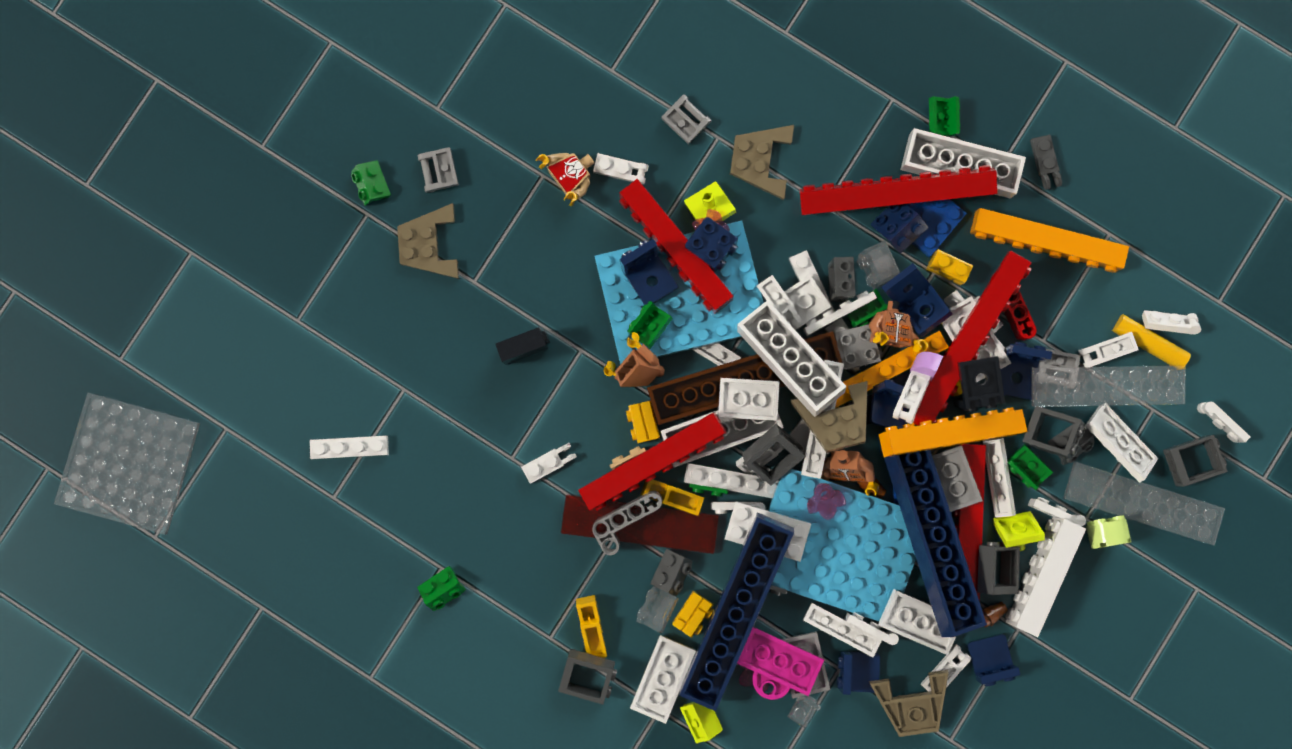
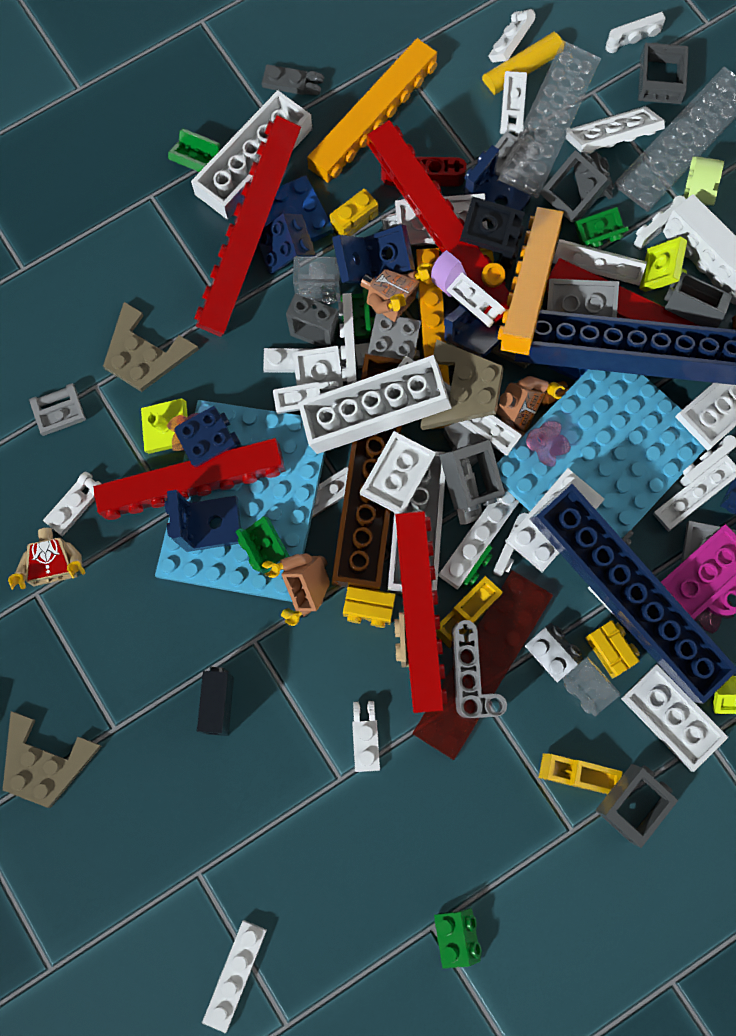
camera: 65 degrees left, 10 degrees down
(941, 401) = (493, 275): none -> light orange tile

